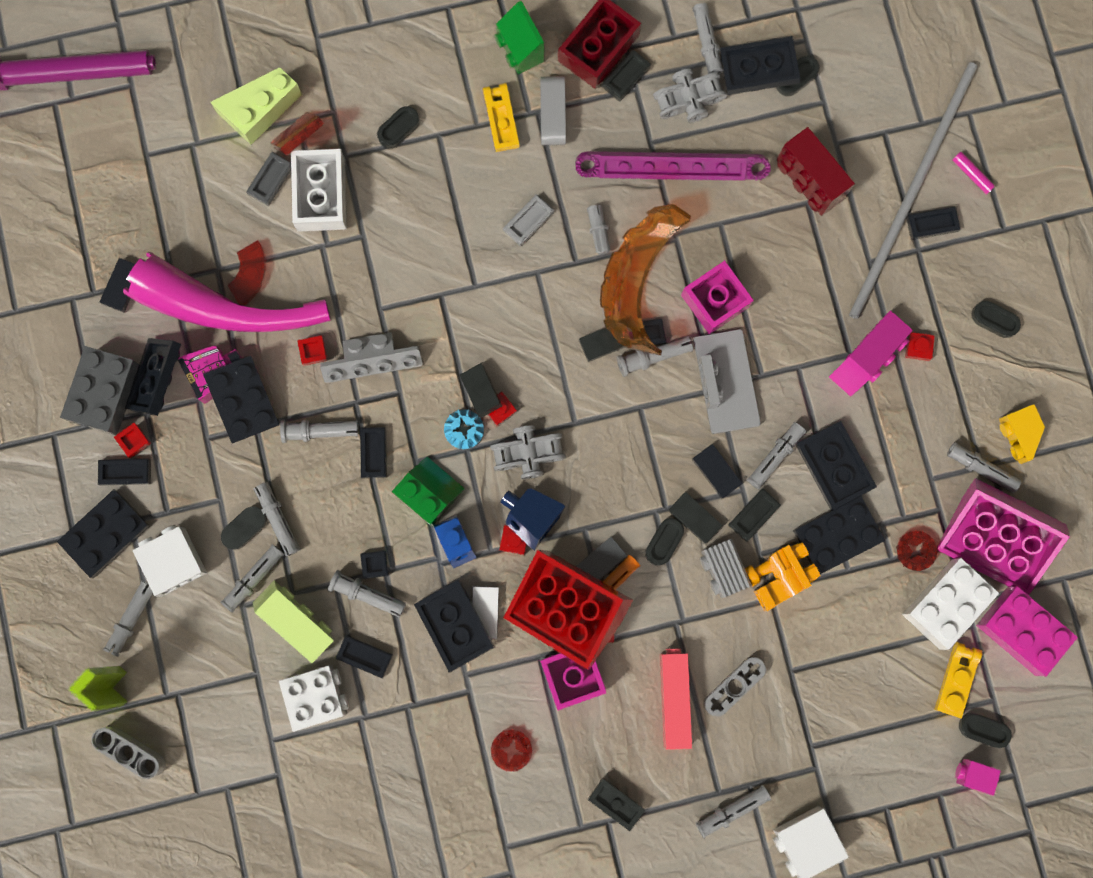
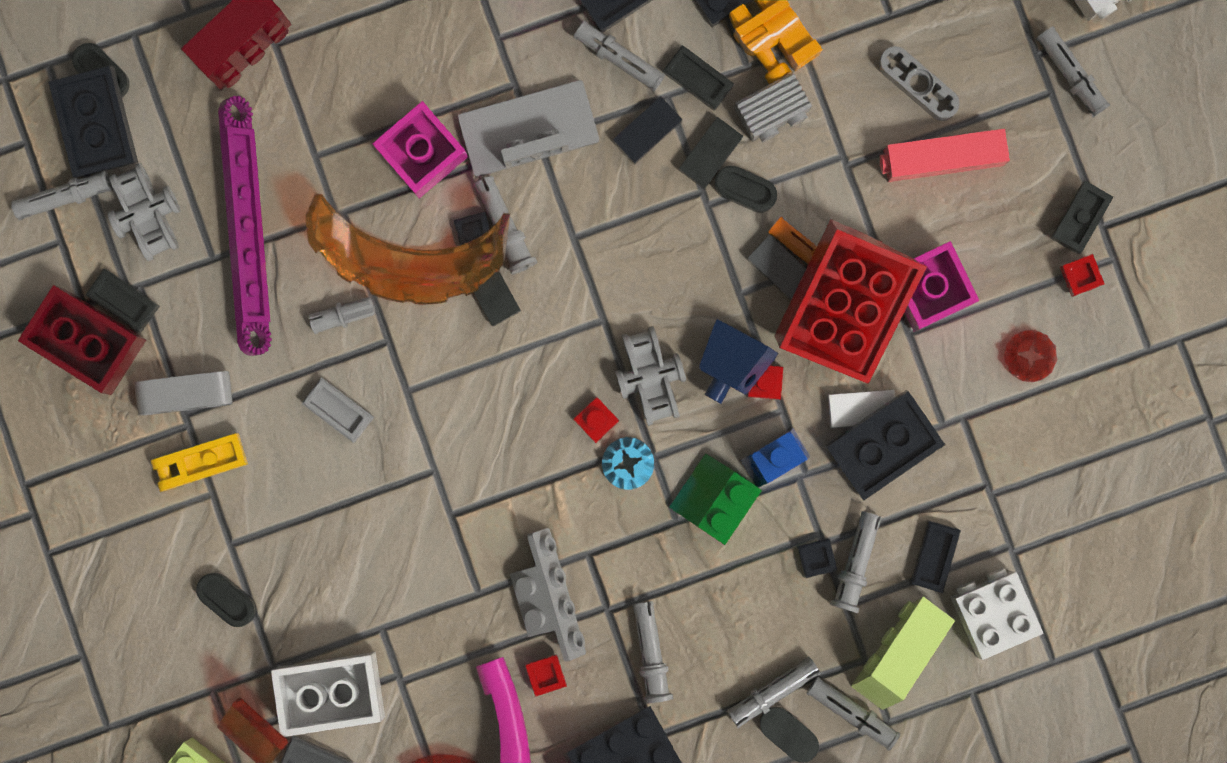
camera: 90 degrees left, 5 degrees up
(373, 452) = (672, 577): black tile -> none
(480, 390) = (576, 446): pearl dark grey tile -> none
(520, 39) = (89, 448): green slope -> none
(570, 799) = (1082, 275): none -> red plate

